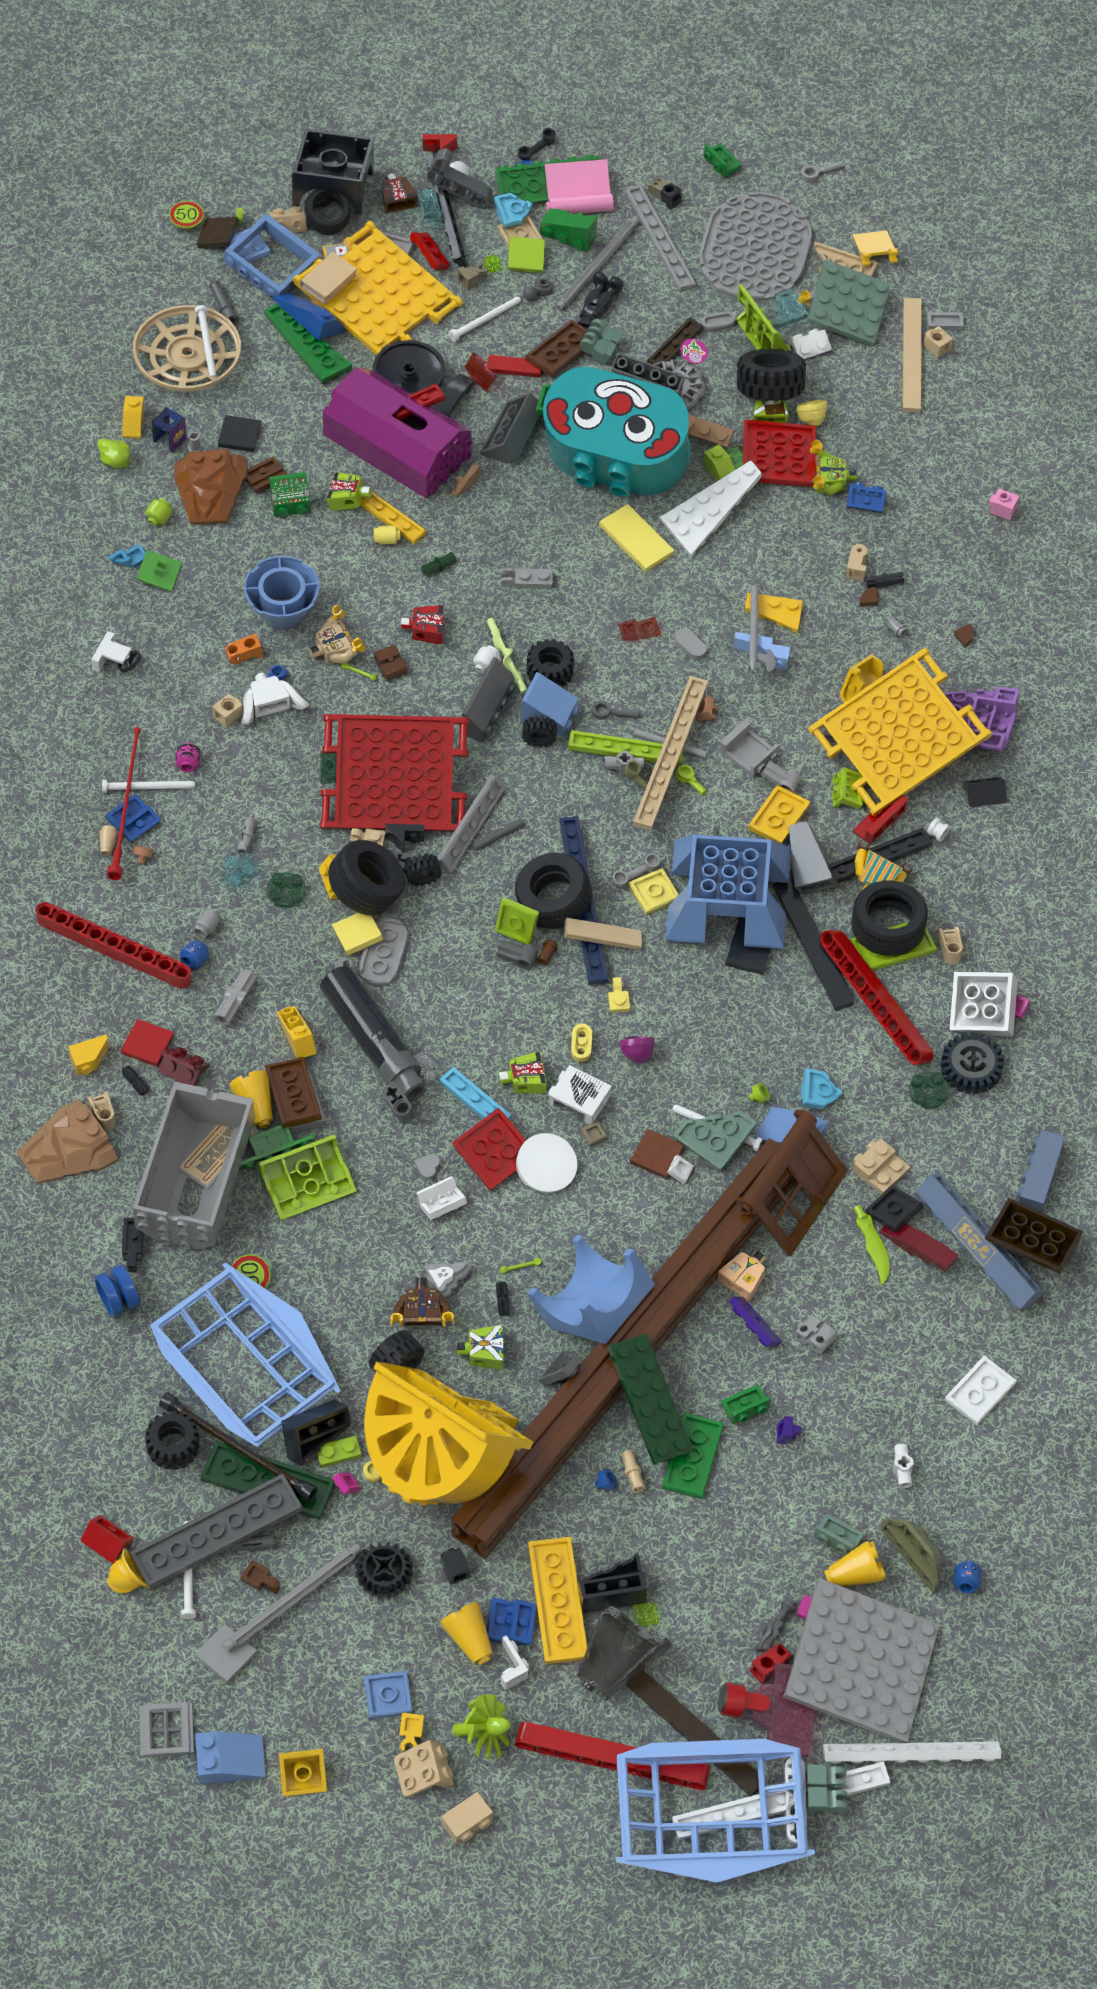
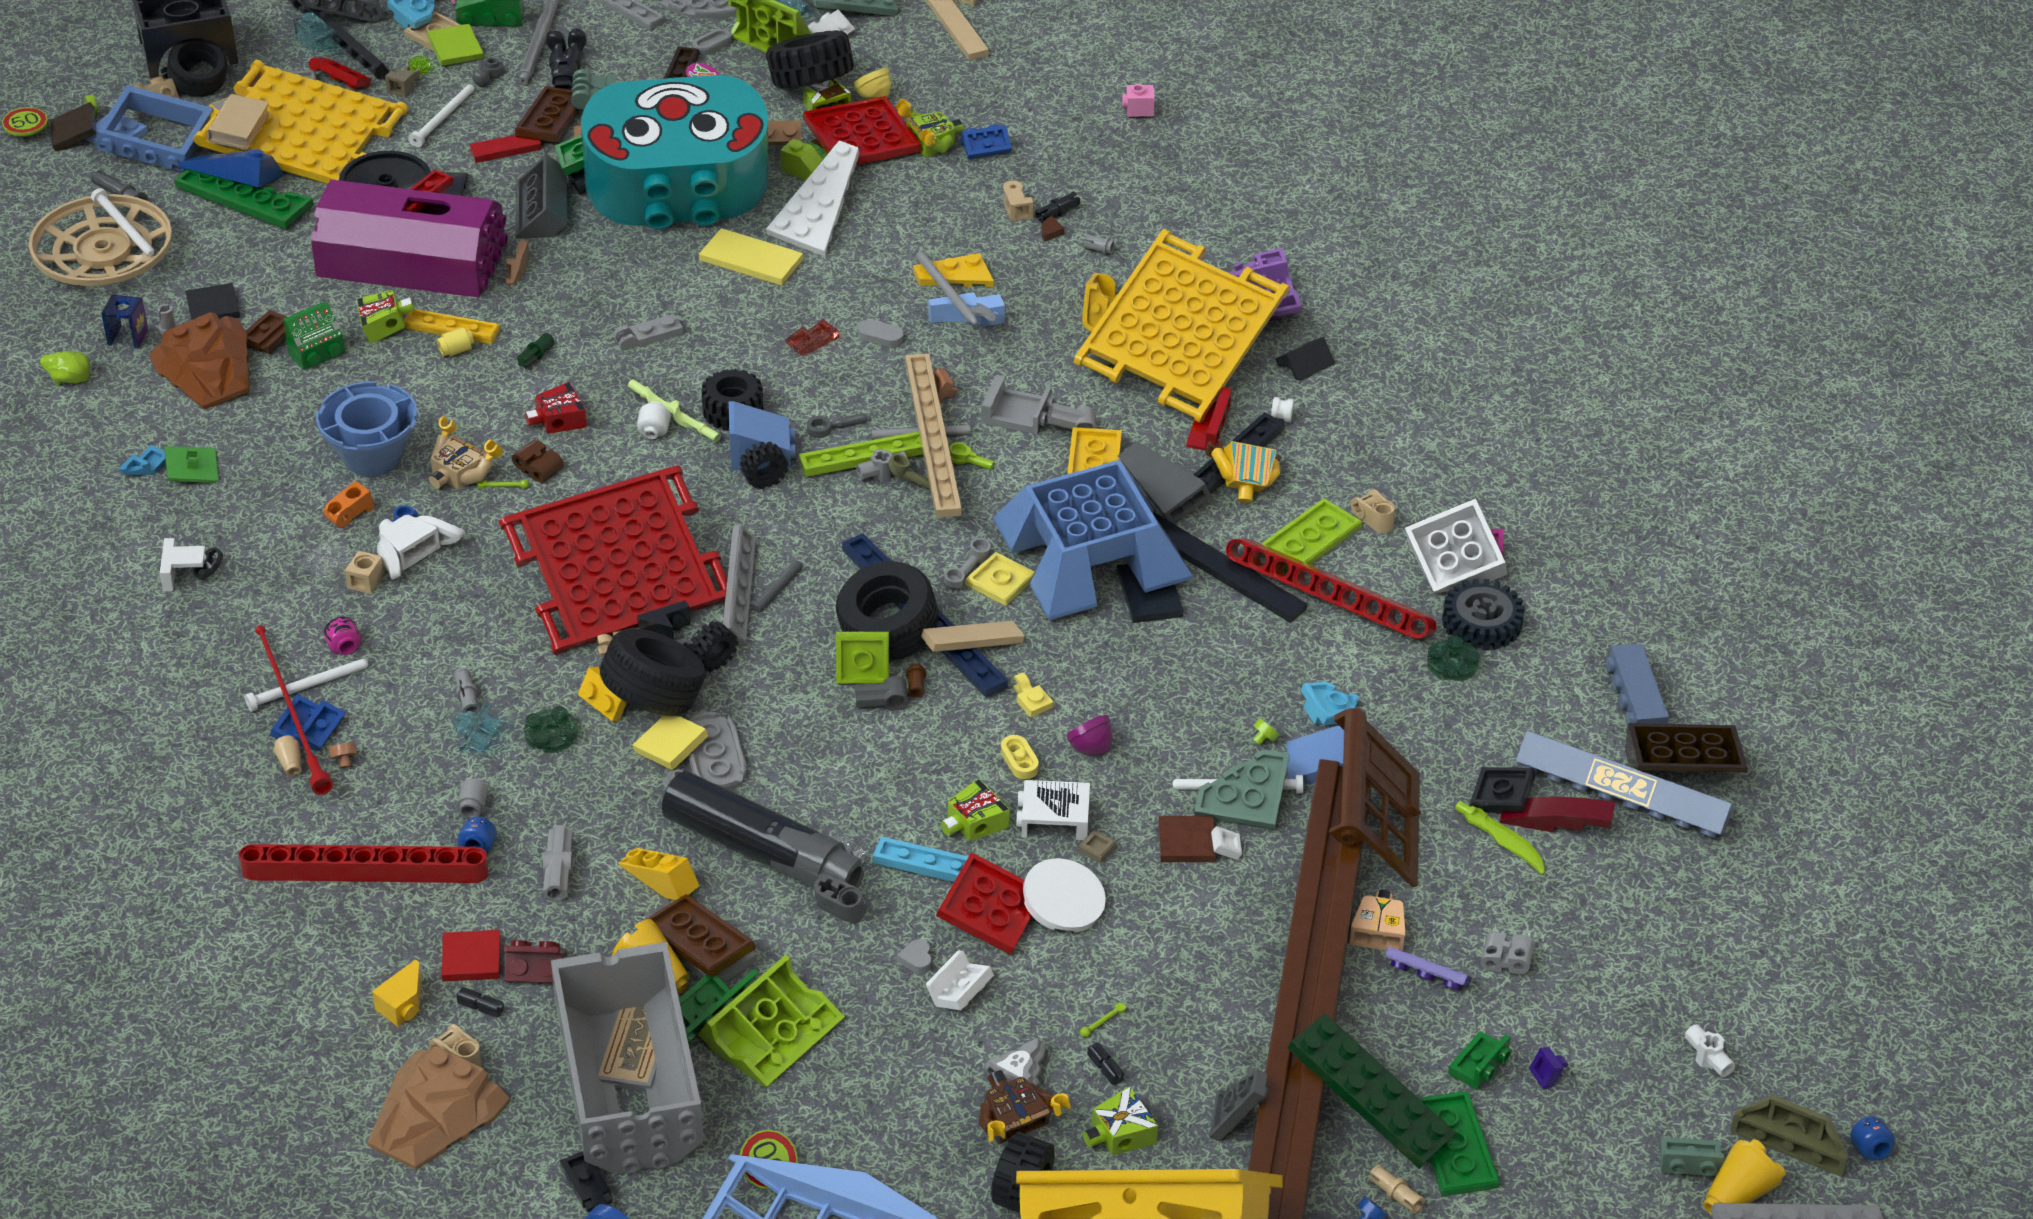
camera: 25 degrees left, 15 degrees down
(133, 417) = (70, 324): yellow slope -> none
(158, 512) = (157, 405): lime head -> none
(328, 767) = (528, 586): clear green slope -> none
(398, 194) = (271, 34): reddish brown torso -> none
(479, 372) = (470, 160): clear red slope -> none
(488, 700) = (684, 450): dark grey slope -> none
(597, 1295) = (1227, 1006): medium blue piece -> none
(843, 790) = (1150, 409): lime bracket -> none
(880, 1166) = (1453, 754): tan plate -> none
(894, 895) = (1294, 525): black tyre -> none
(964, 635) = (1179, 228): reddish brown tile -> none
(980, 1390) = (1735, 938): white tile -> none

